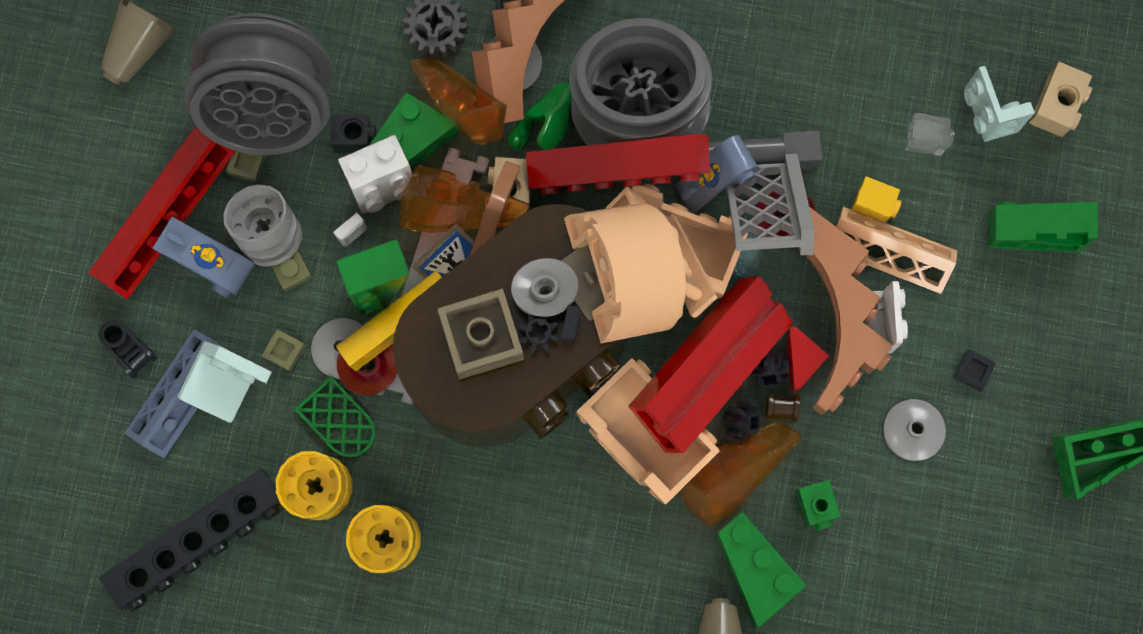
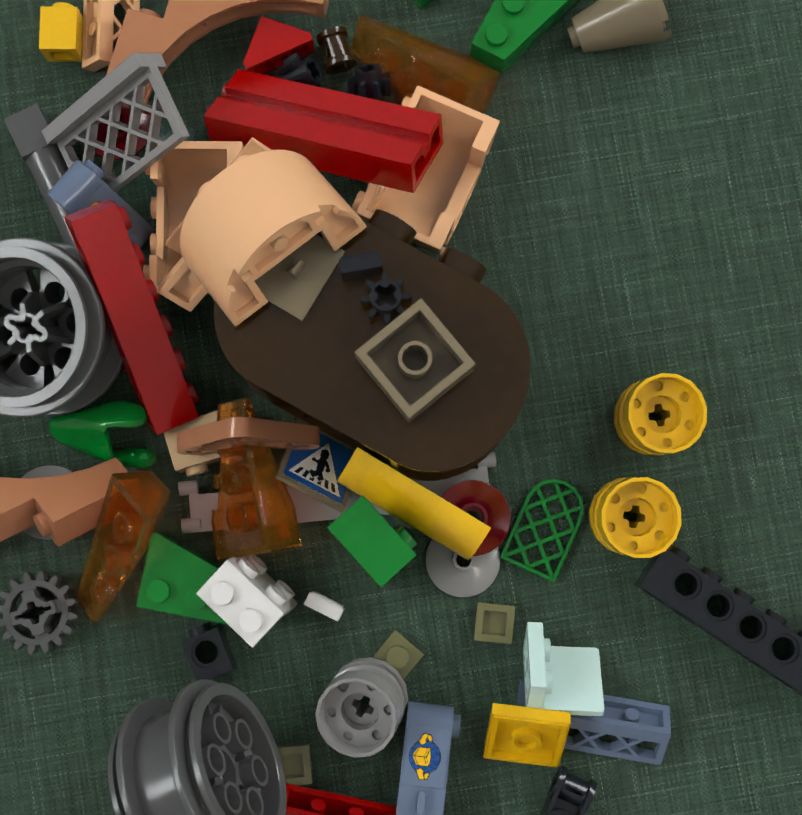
camera: 110 degrees left, 5 degrees up
(189, 337) = (526, 735): none -> yellow tile
(542, 277) = (311, 316): light grey dish -> none

